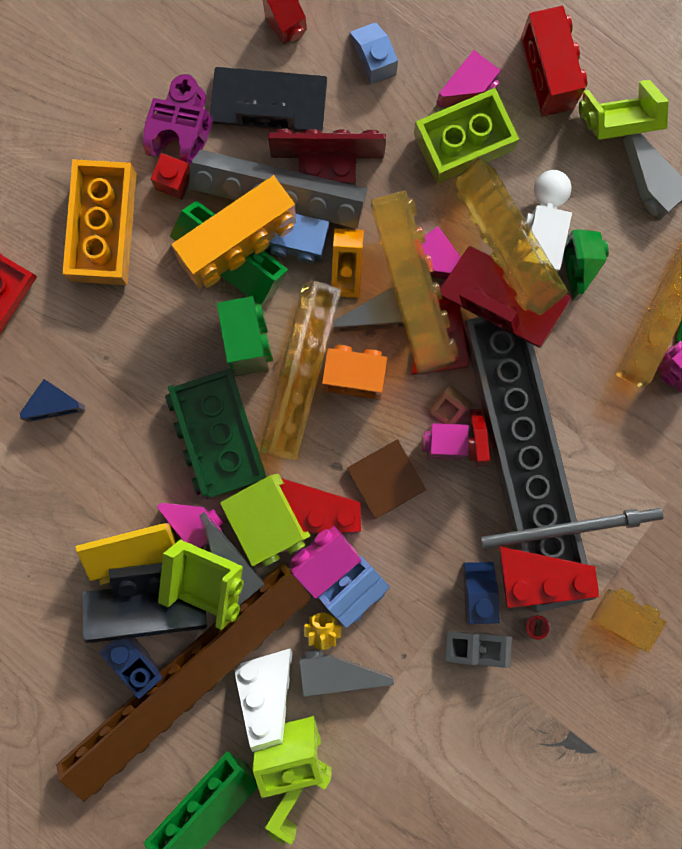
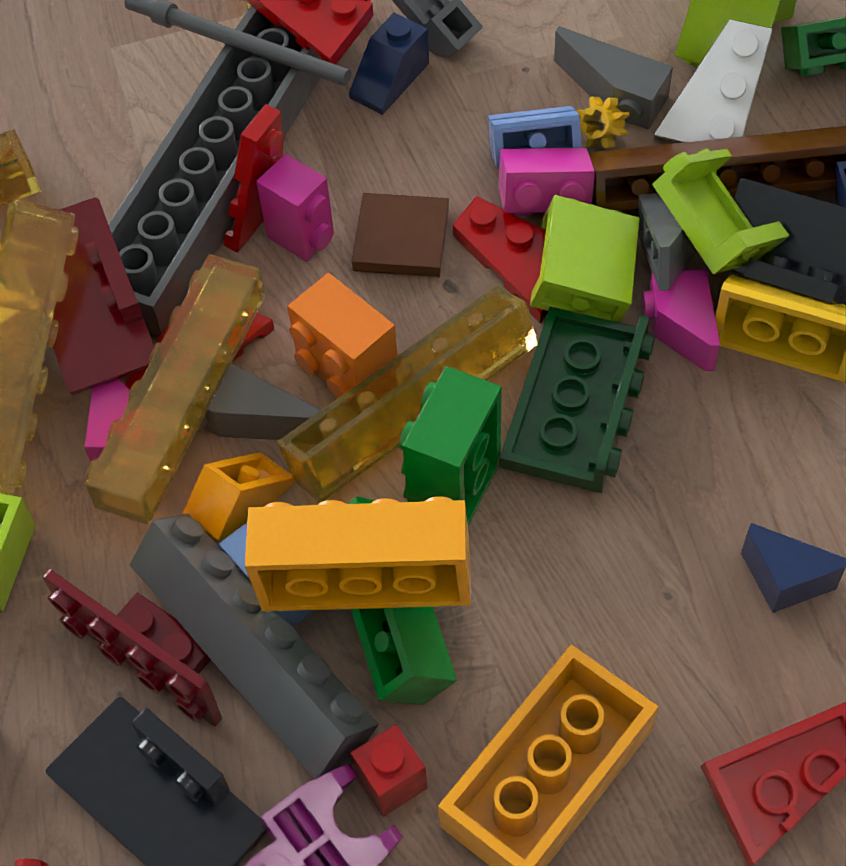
camera: 140 degrees left, 25 degrees down
(450, 406) = (263, 255): medium nougat slope -> none

